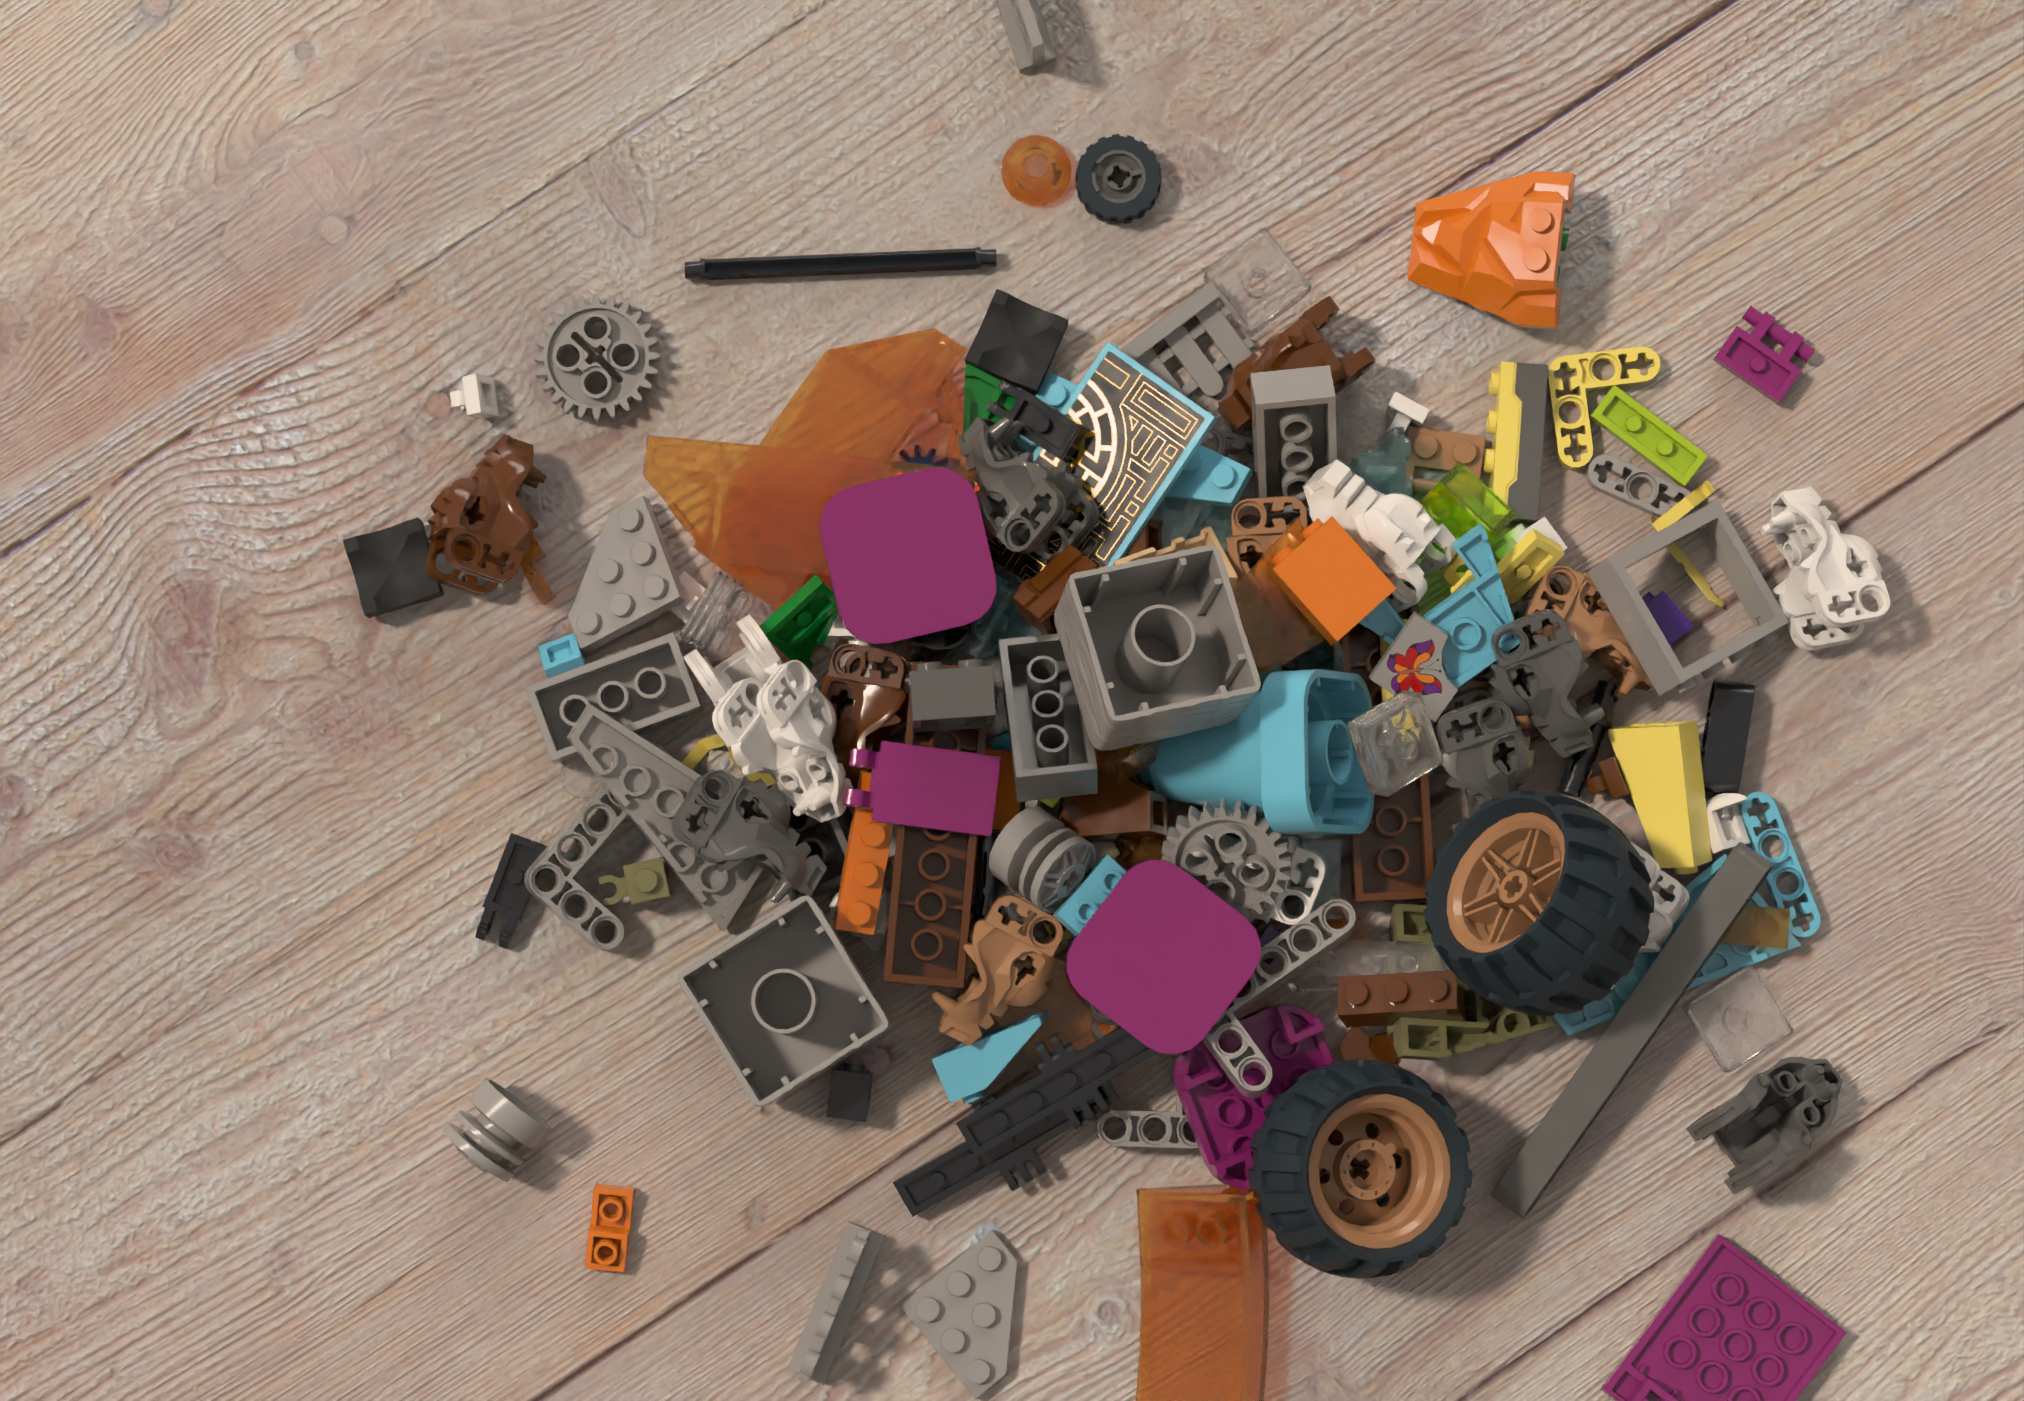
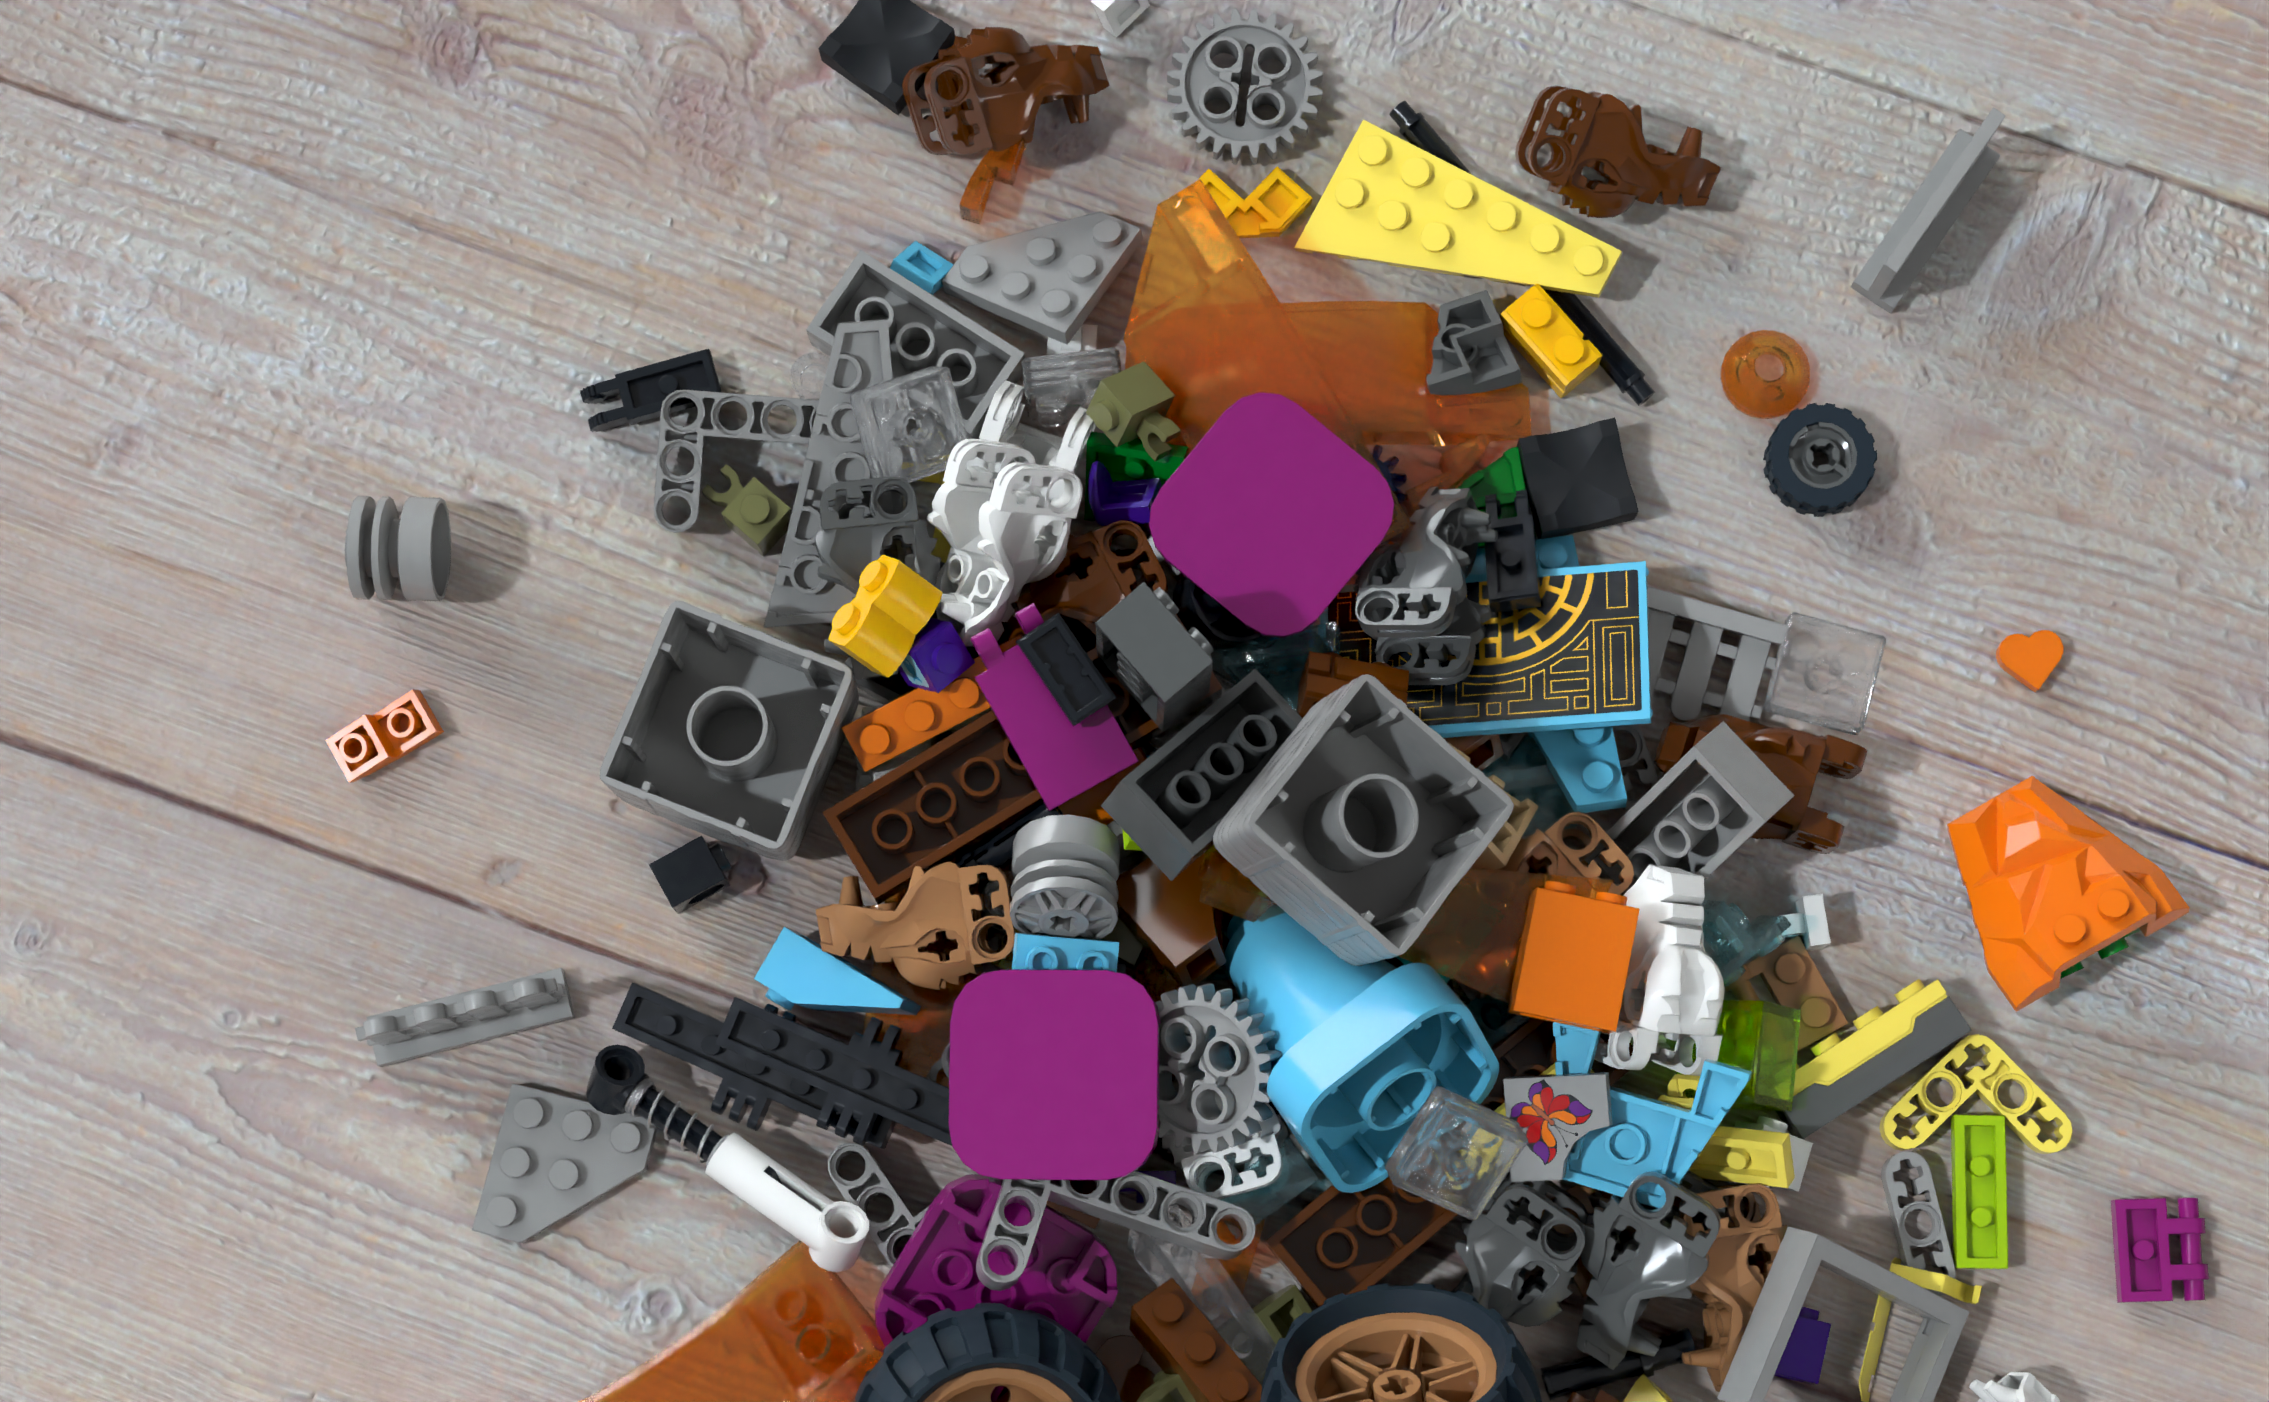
camera: 55 degrees right, 5 degrees down
(689, 409) = (1266, 210): none -> yellow tile
(691, 747) = (885, 411): none -> clear brick
(766, 589) = (1133, 407): none -> olive brick
(771, 306) = (1430, 216): none -> light yellow wing
(790, 848) = (884, 615): none -> yellow brick
(808, 156) = (1610, 140): none -> reddish brown animal
(818, 640) = (1120, 499): none -> dark purple plate
(832, 838) = (935, 657): none -> dark purple brick
(883, 345) = (1471, 349): none -> dark grey slope
(911, 759) = (1065, 669): none -> black plate
(913, 291) = (1549, 340): none -> yellow brick
(1056, 1201) = (829, 1228): none -> piece
(1342, 145) = (2031, 657): none -> orange tile

